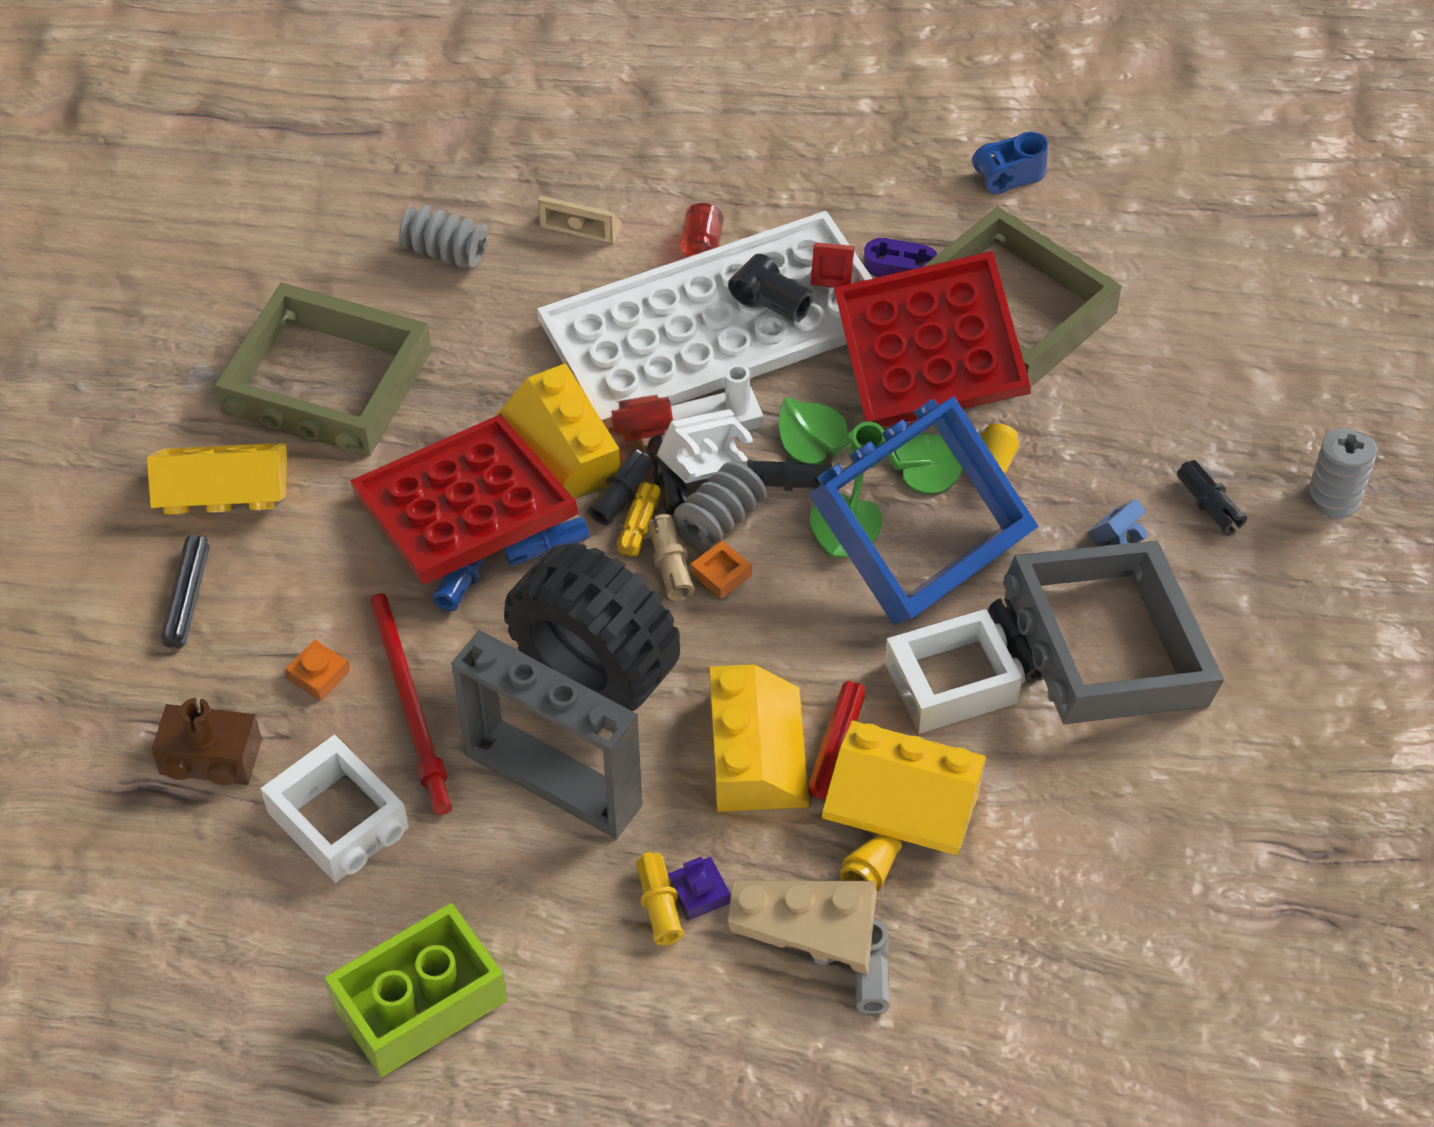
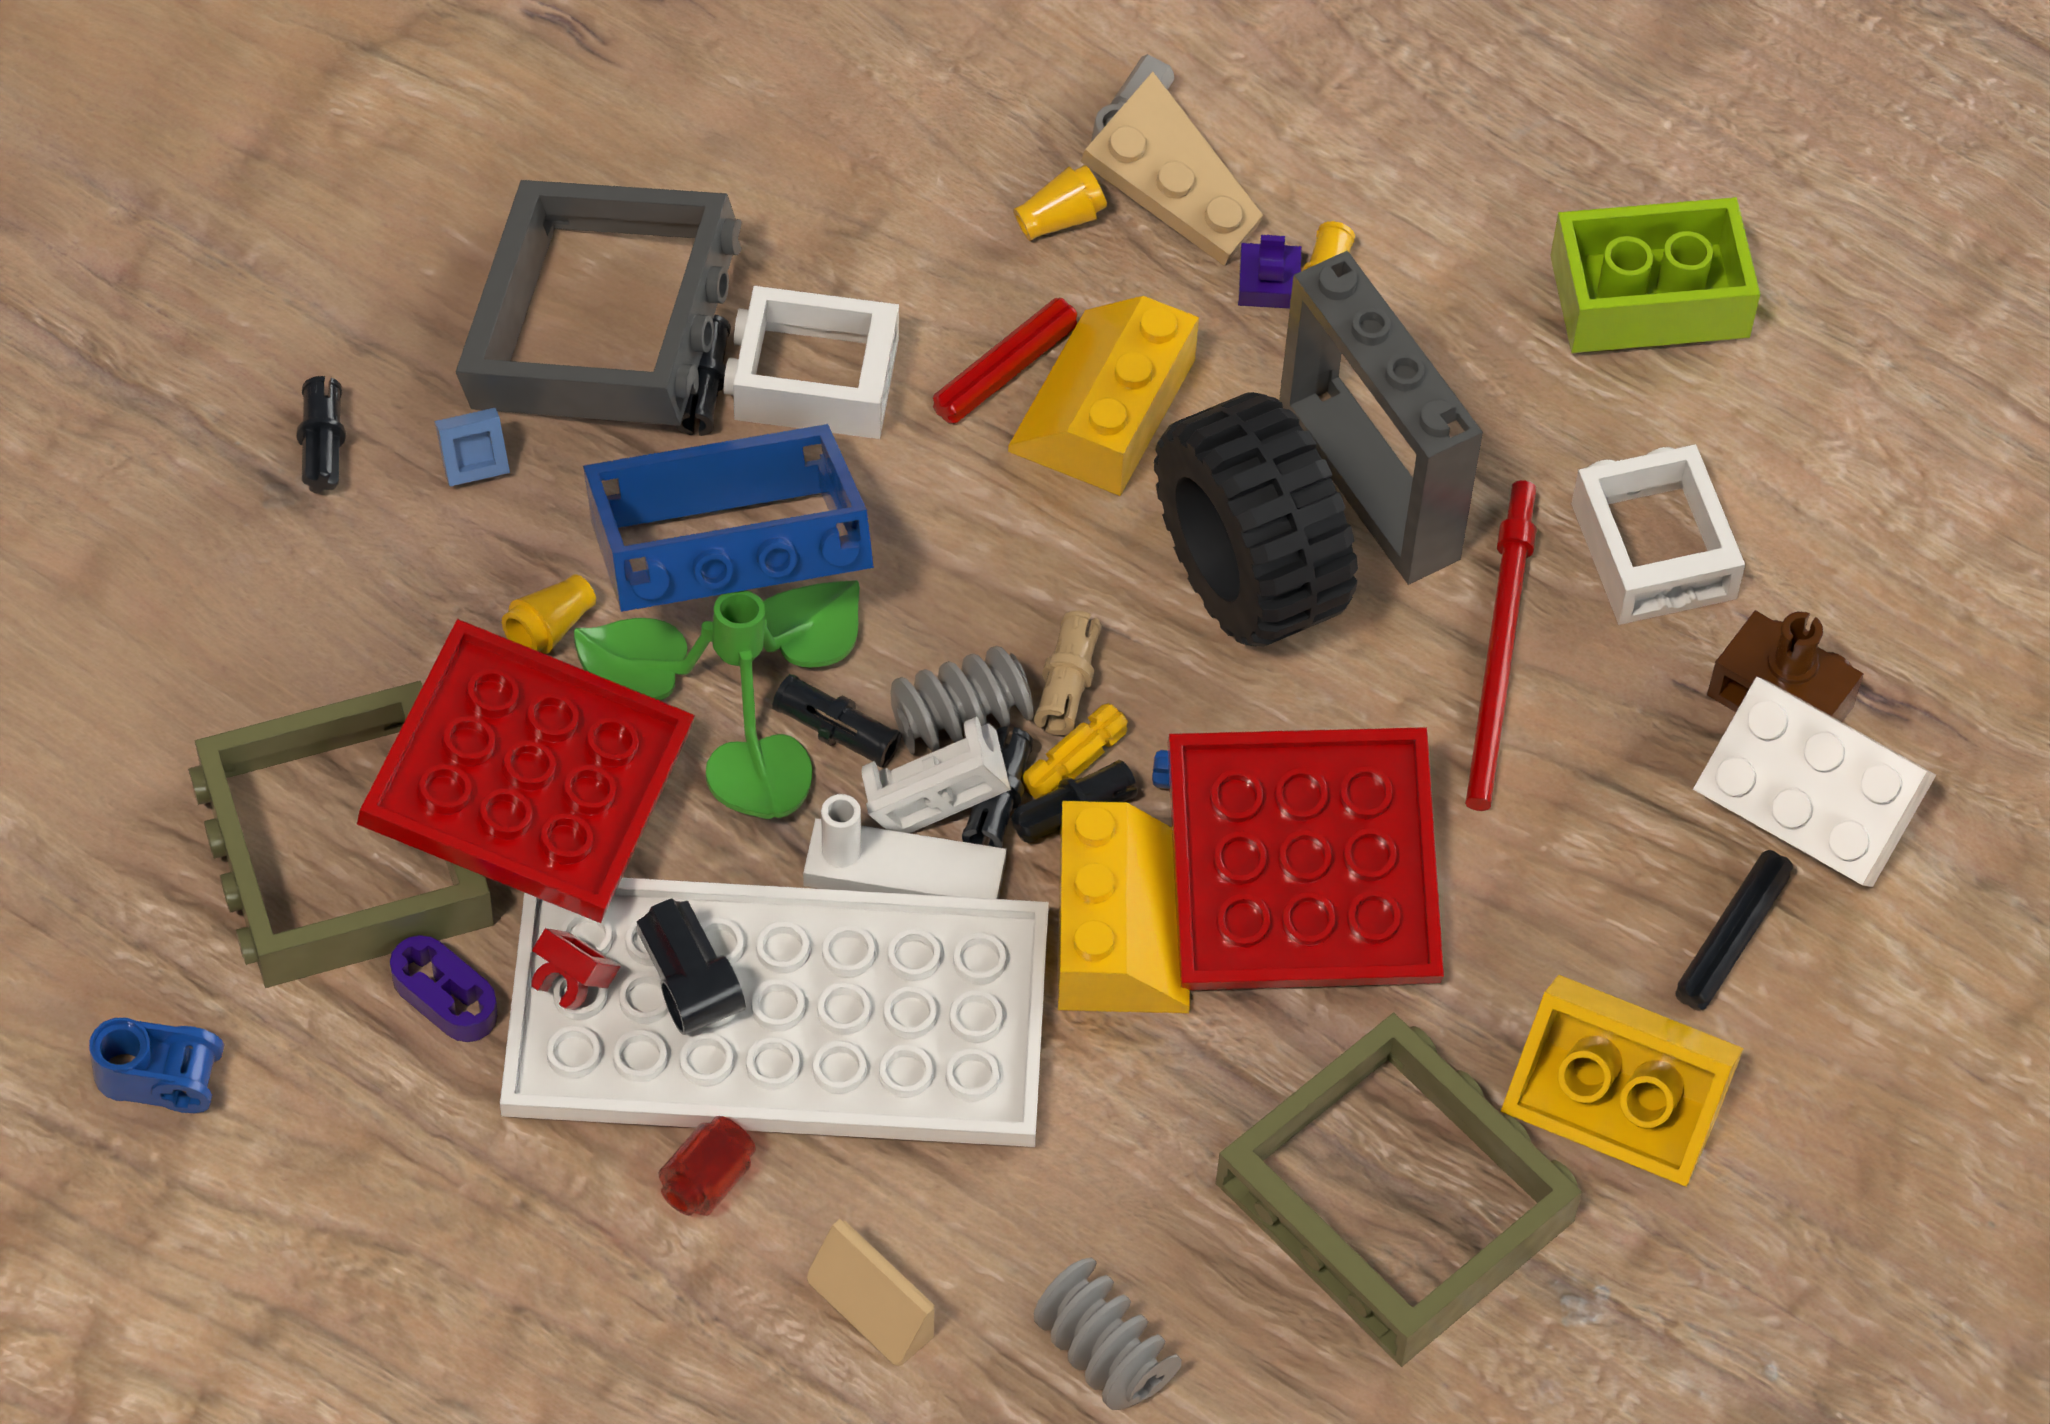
camera: 155 degrees left, 5 degrees up
(157, 661) = (1814, 782): none -> white brick
(317, 669) = (1600, 741): orange plate -> none
(642, 417) = (995, 856): clear red brick -> none
(721, 569) = (1014, 622): orange plate -> none
(904, 787) = (976, 241): yellow slope -> none
(1342, 471) = (149, 347): light grey piece -> none

